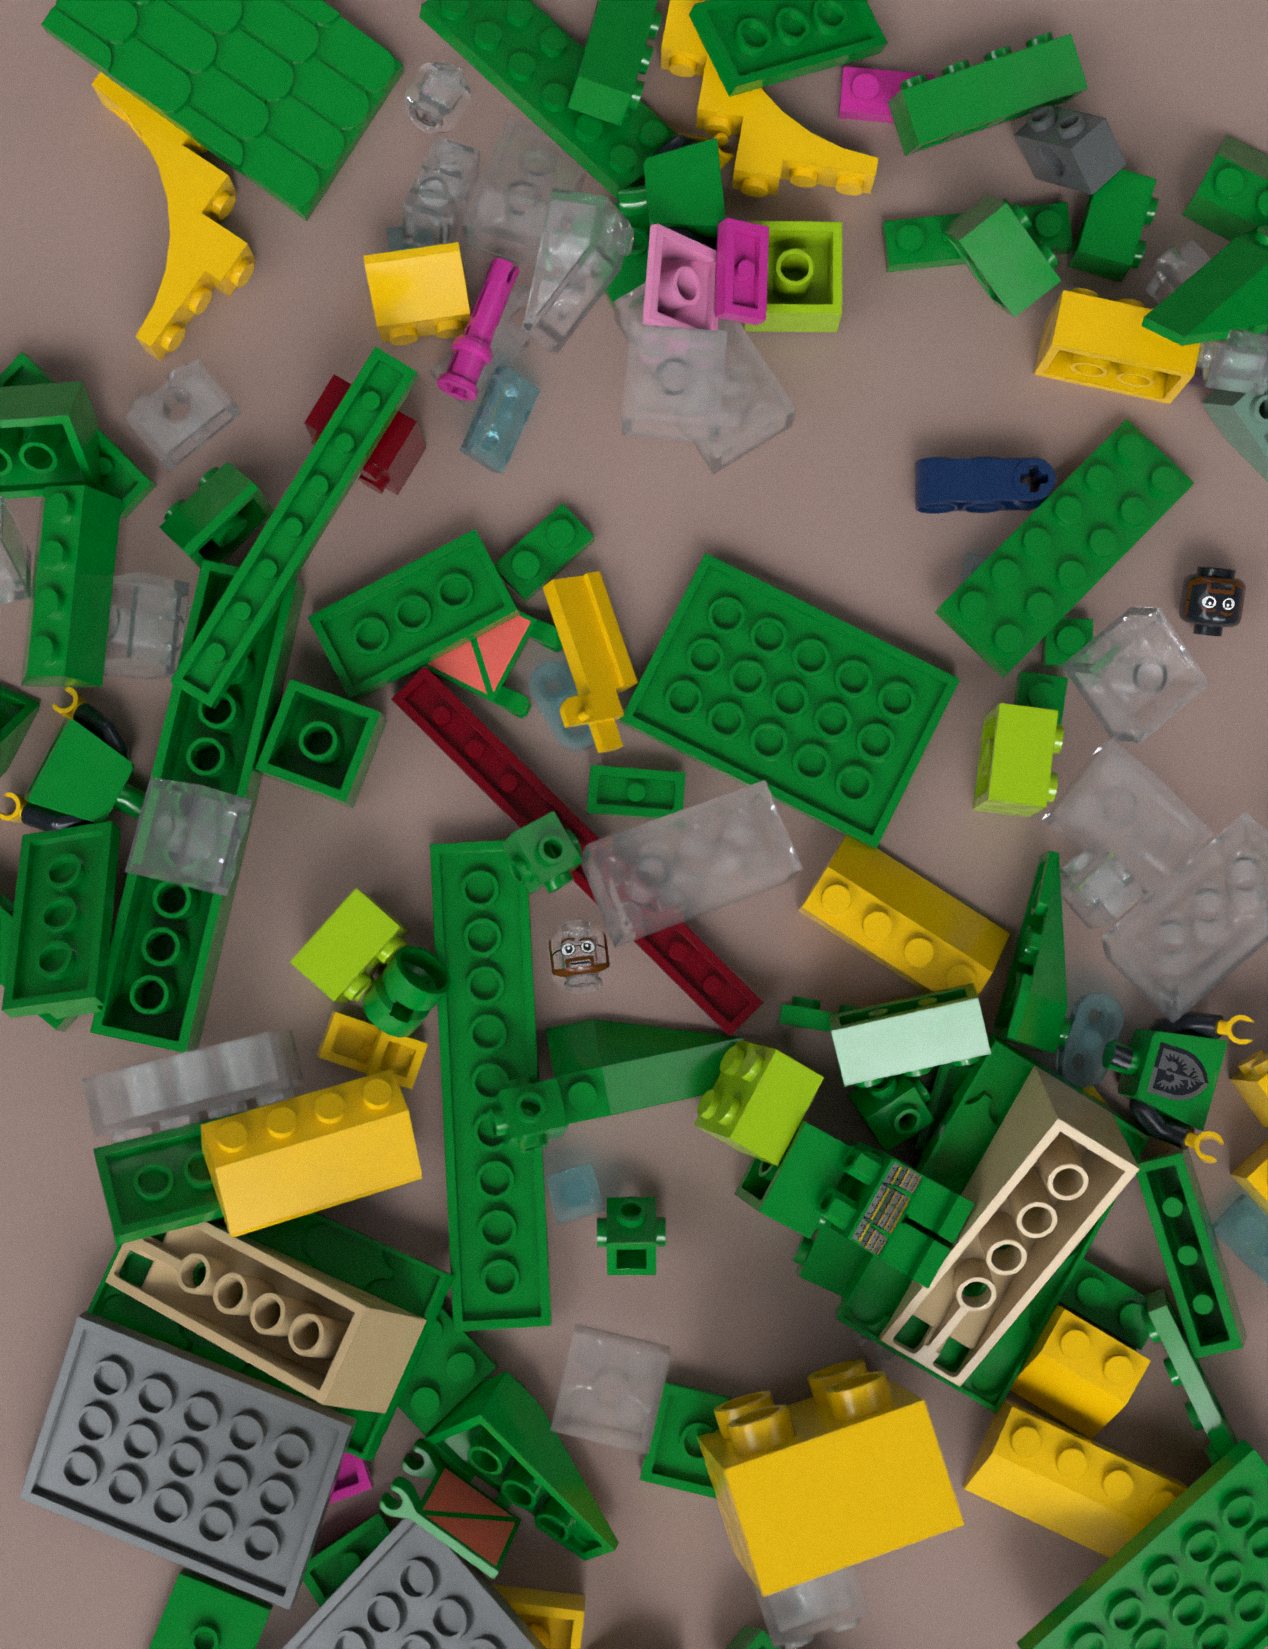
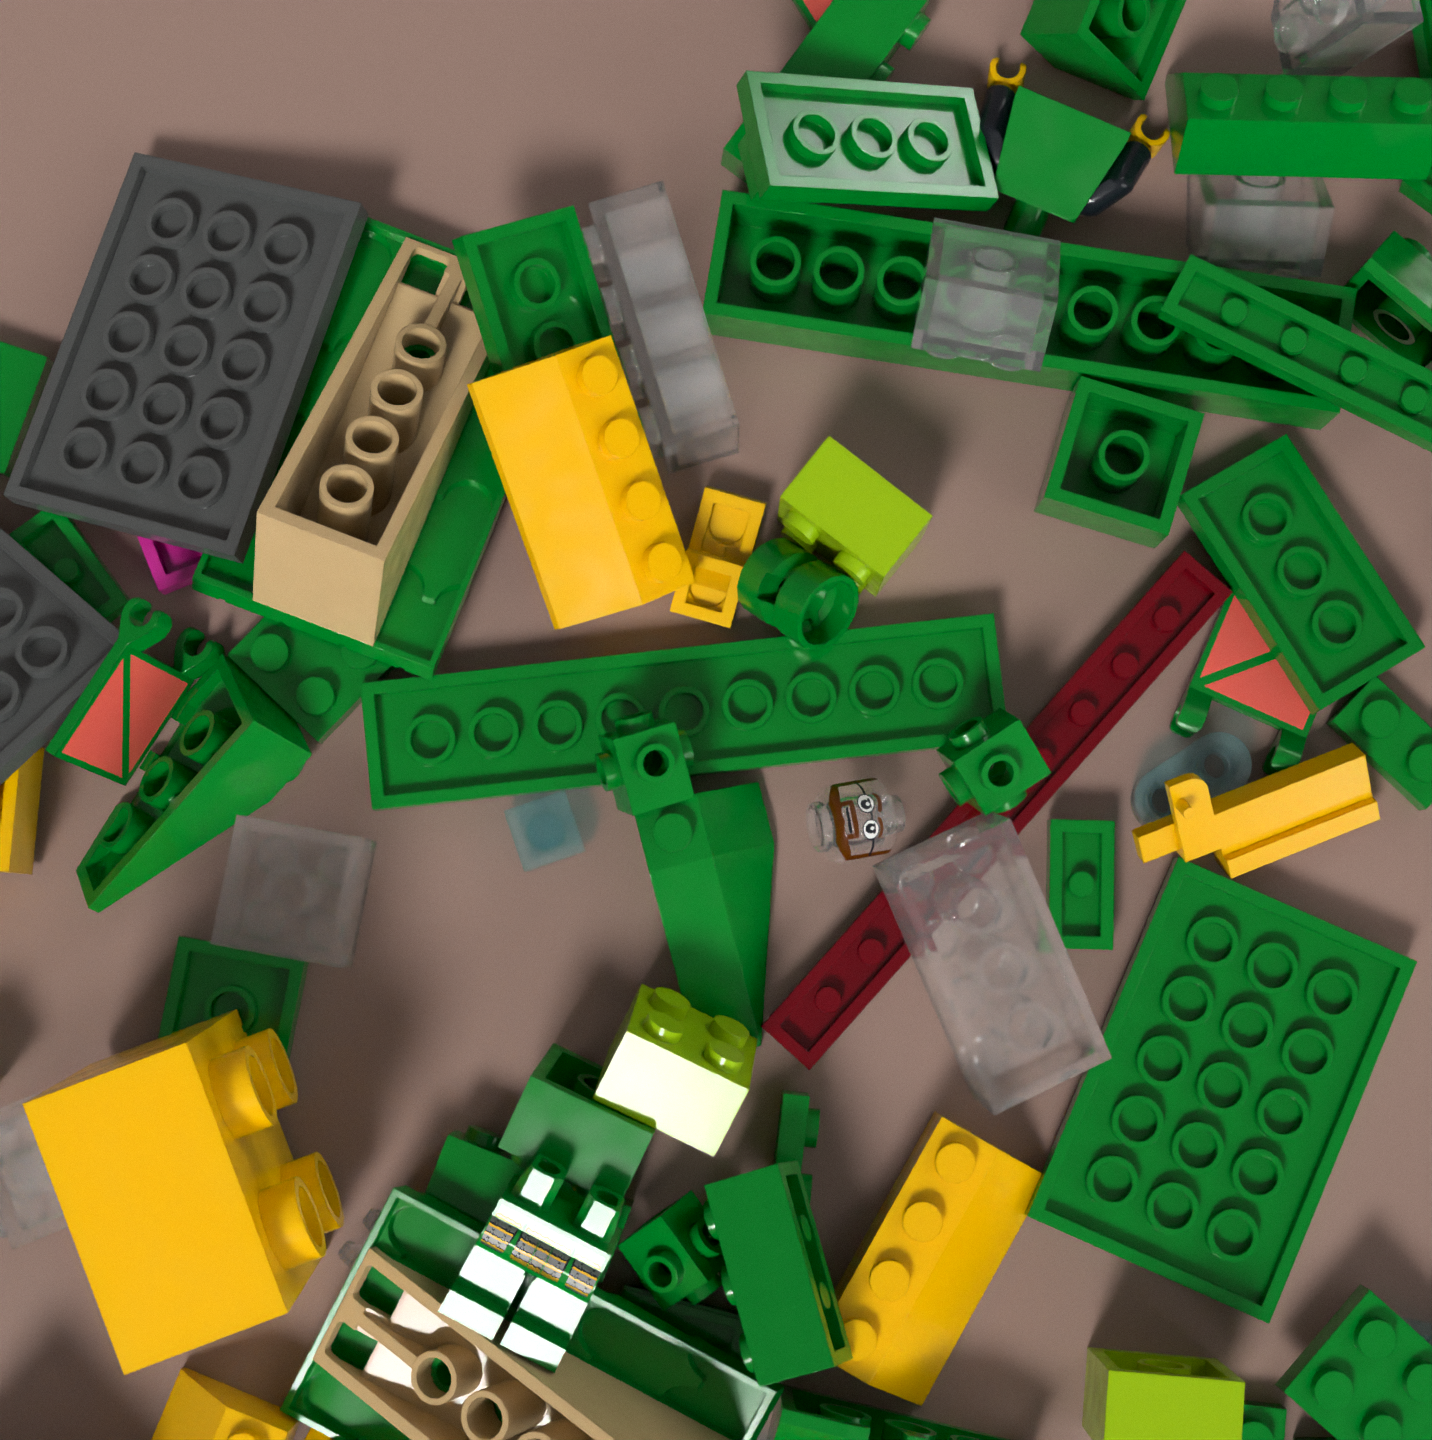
camera: 90 degrees right, 0 degrees up
(631, 1235) = (493, 907): green brick -> none

